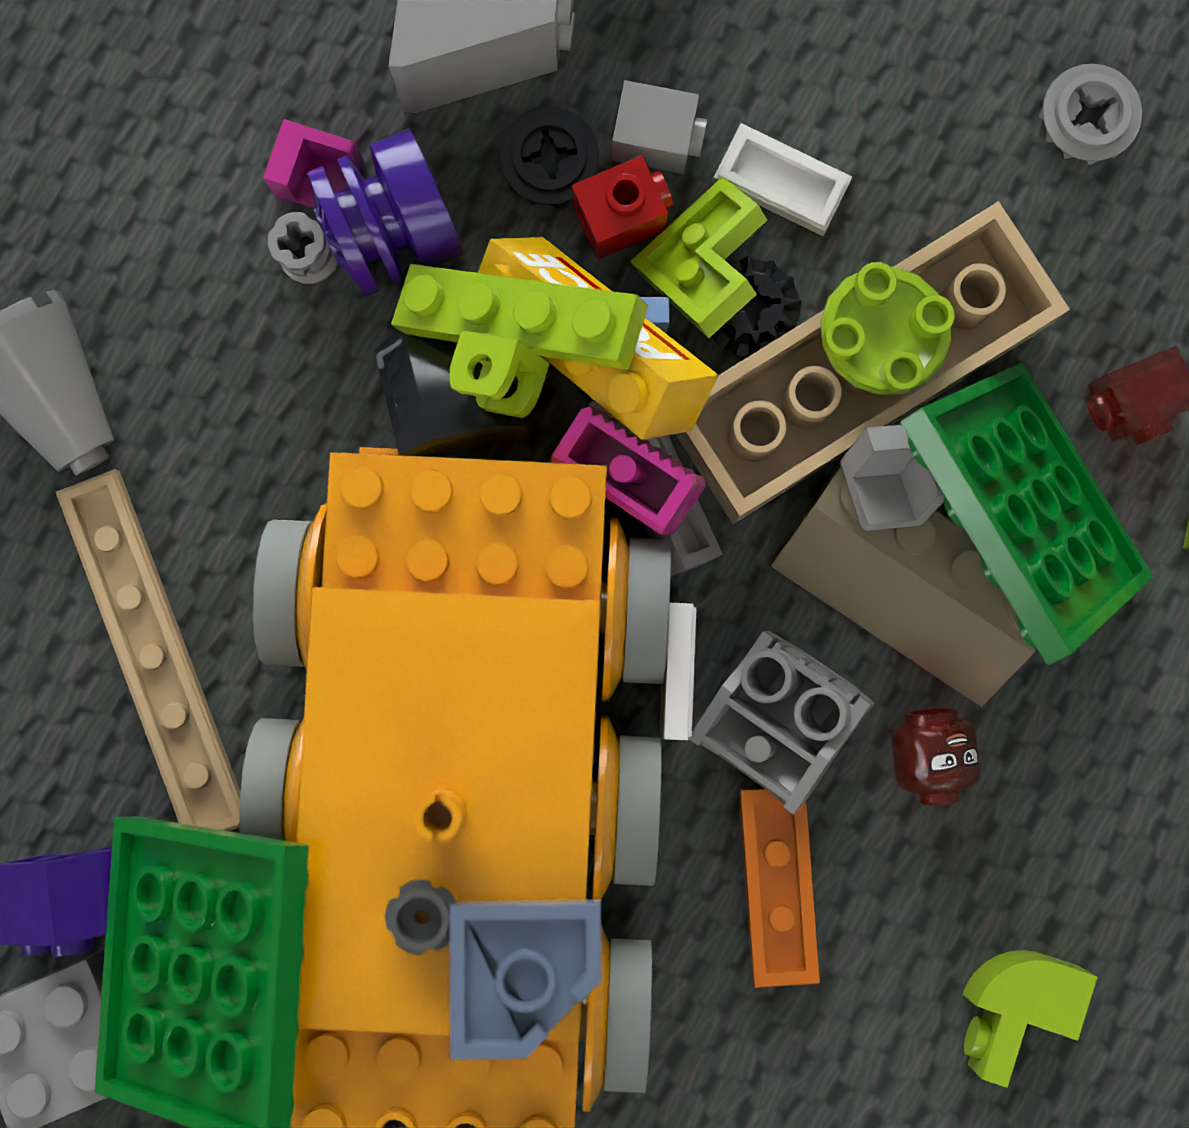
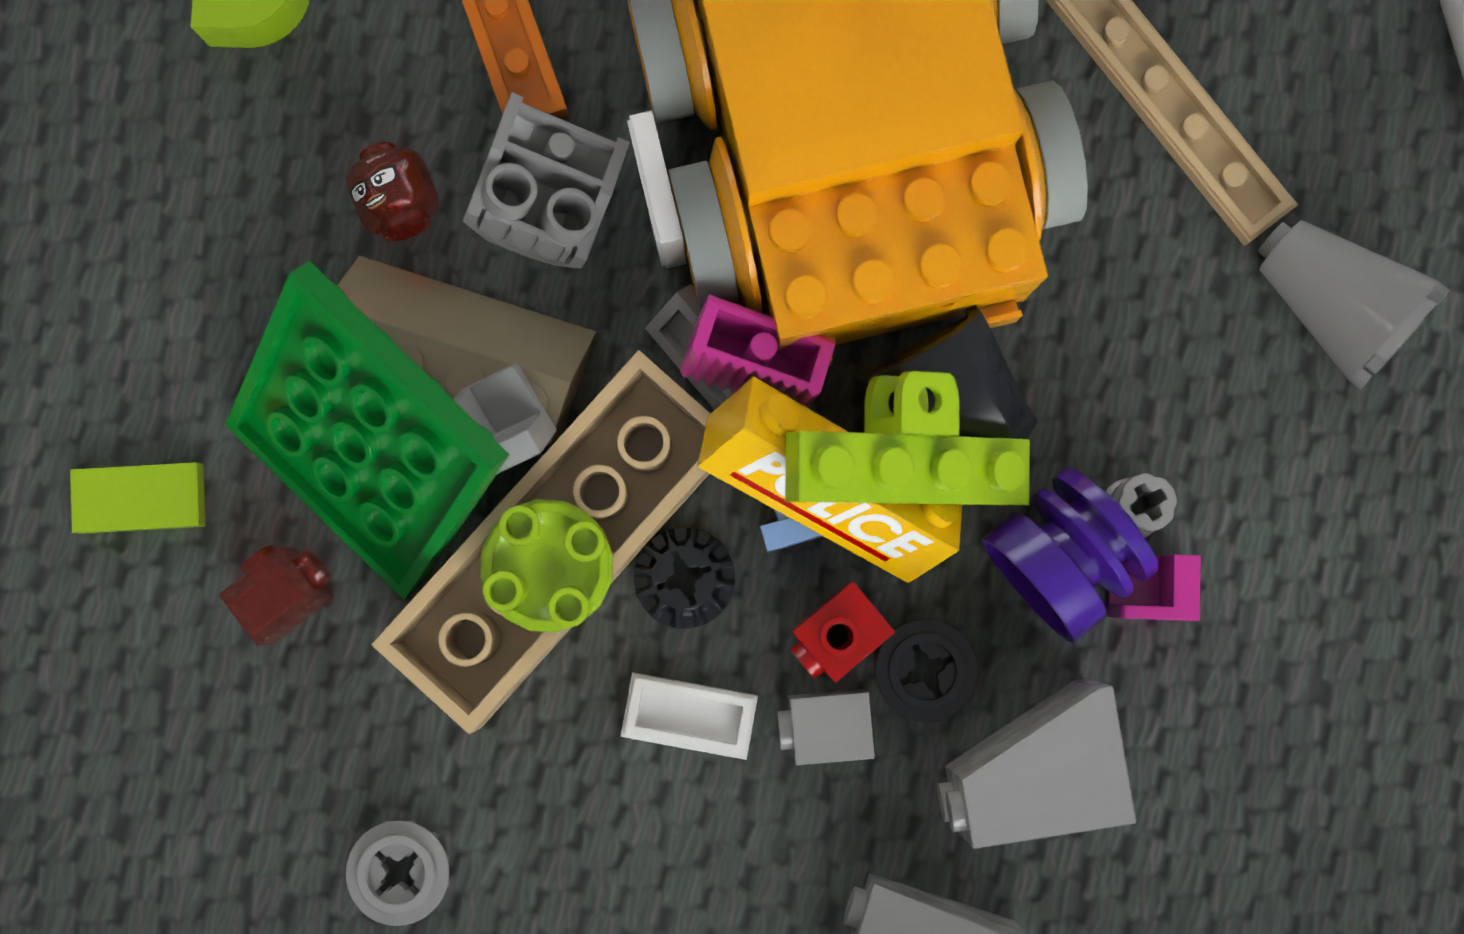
camera: 165 degrees right, 0 degrees up
(691, 254) = (760, 601): lime plate -> none

